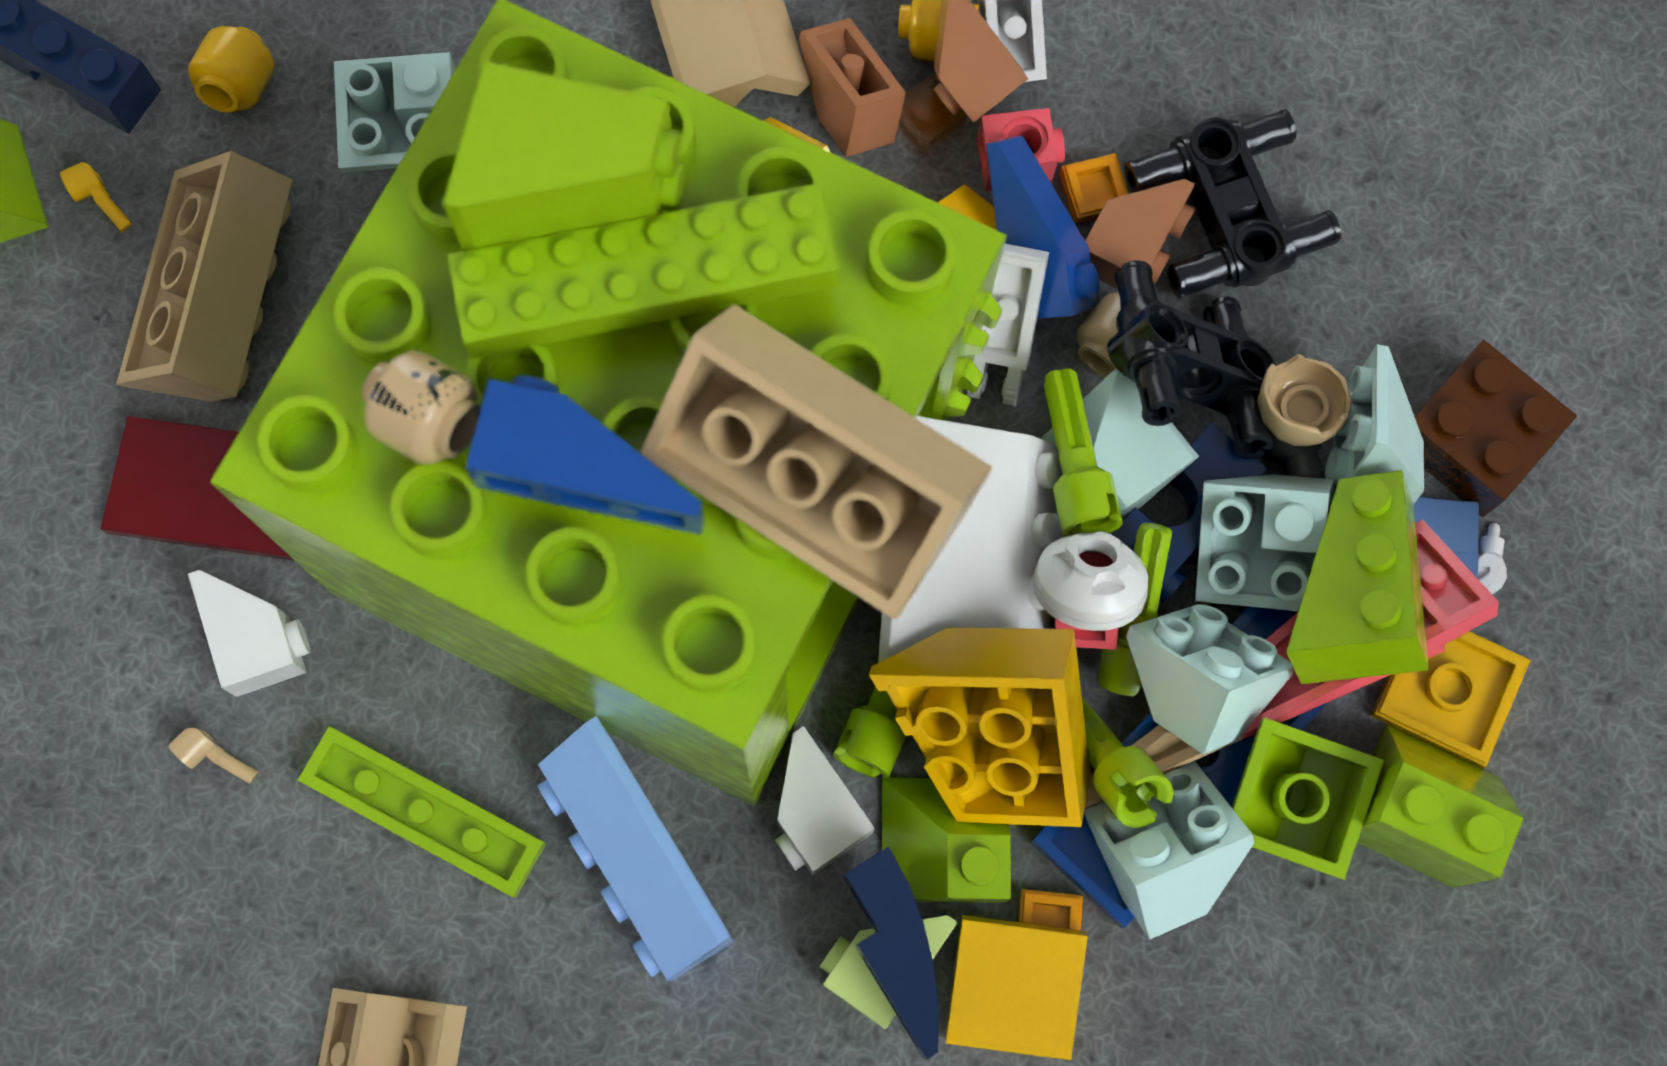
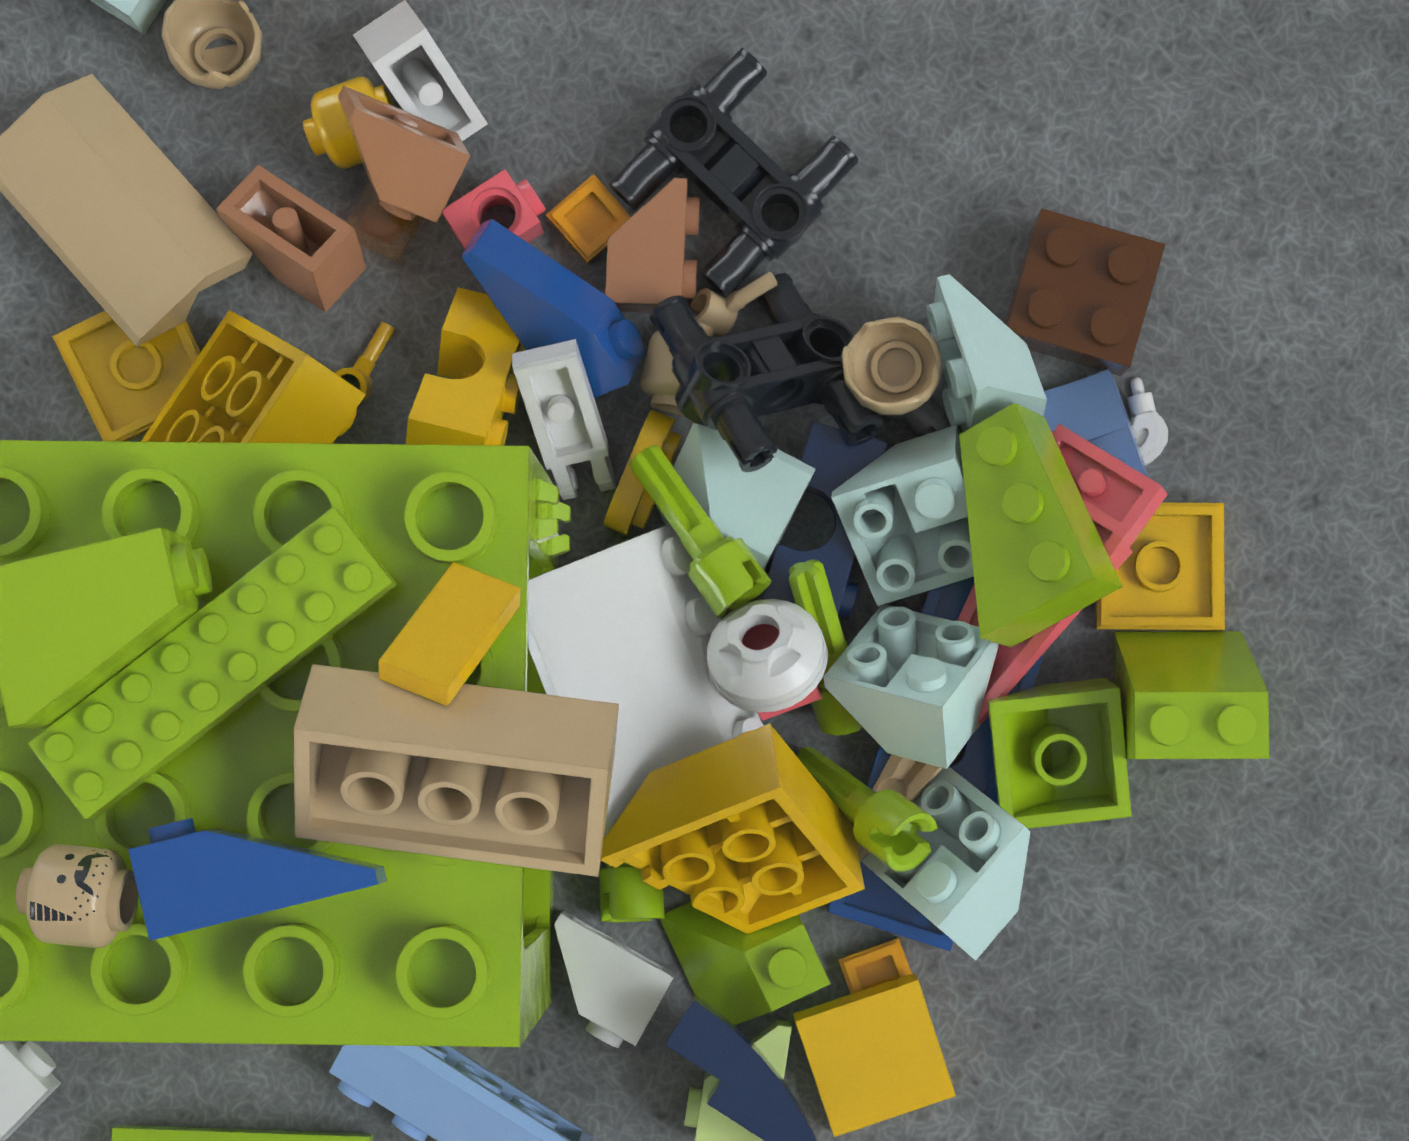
camera: 15 degrees left, 10 degrees up
(867, 339) = (449, 633): none -> yellow tile
(1029, 412) = (631, 501): none -> yellow plate
(1186, 303) = (722, 312): none -> tan hand

